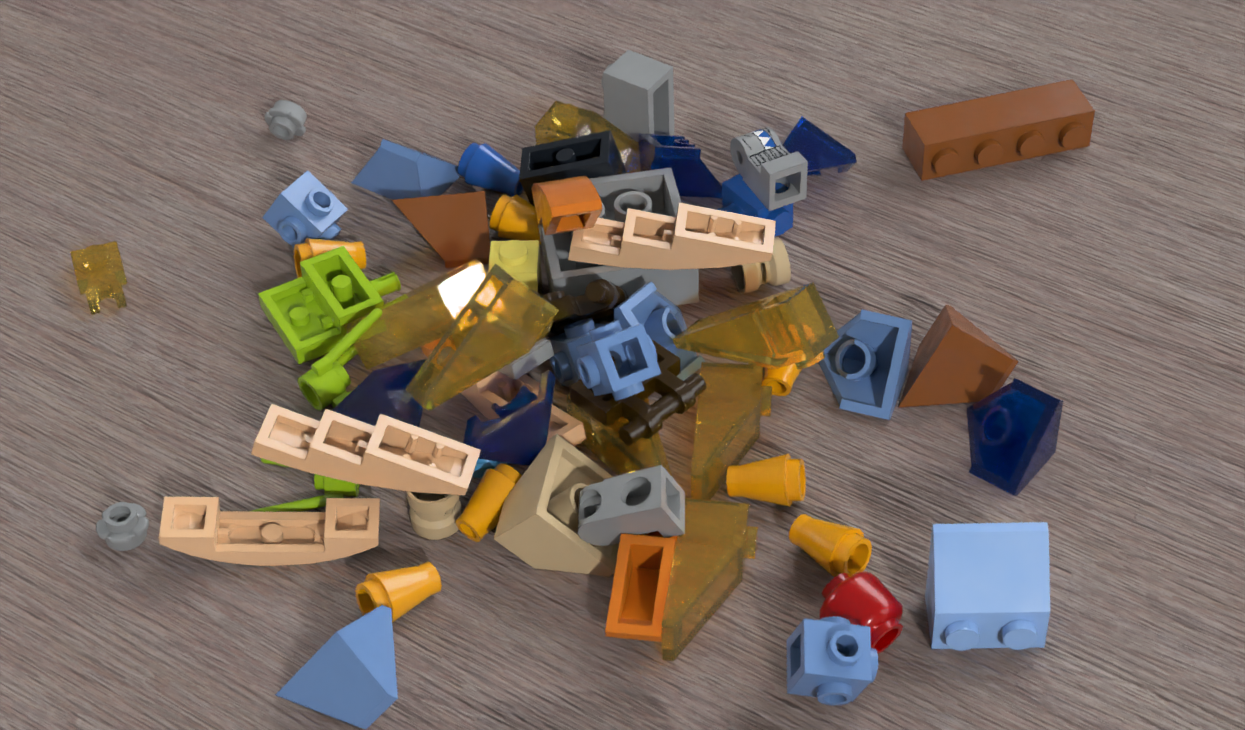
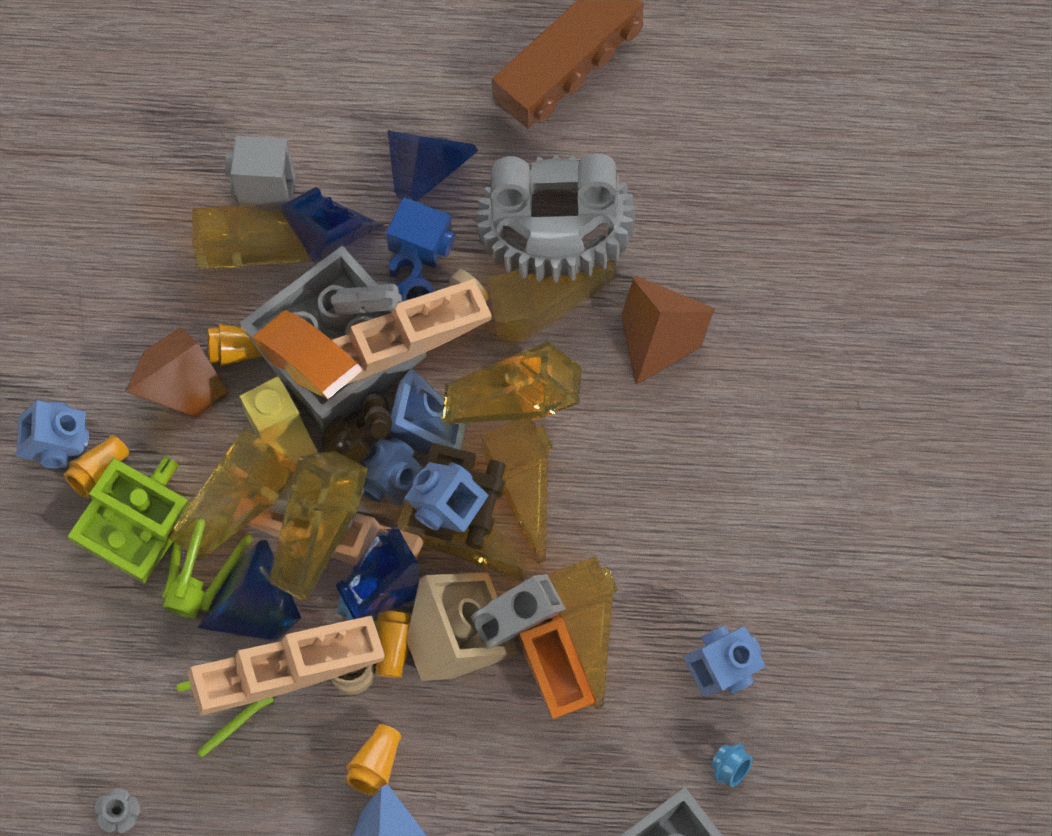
camera: 30 degrees left, 25 degrees up
(269, 538) = (242, 758): light nougat slope -> none
(405, 173) = (104, 337): medium blue slope -> none
(489, 170) = (171, 299): blue cone -> none
(570, 159) = (252, 280): black brick -> none
(659, 196) = (368, 299): none -> light grey piece
(764, 162) = (422, 206): light grey leg -> none
(768, 480) = (586, 514): light orange cone -> none
(831, 544) = (665, 551): light orange cone -> none
(856, 285) = (529, 307): none -> clear yellow slope
(864, 603) = (719, 602): red head -> none
(869, 363) = (605, 365): medium blue slope -> none
(883, 215) = (555, 242): none -> light grey piece
(988, 585) = (803, 543): light blue slope -> none
(1013, 435) = (738, 382): clear blue slope -> none

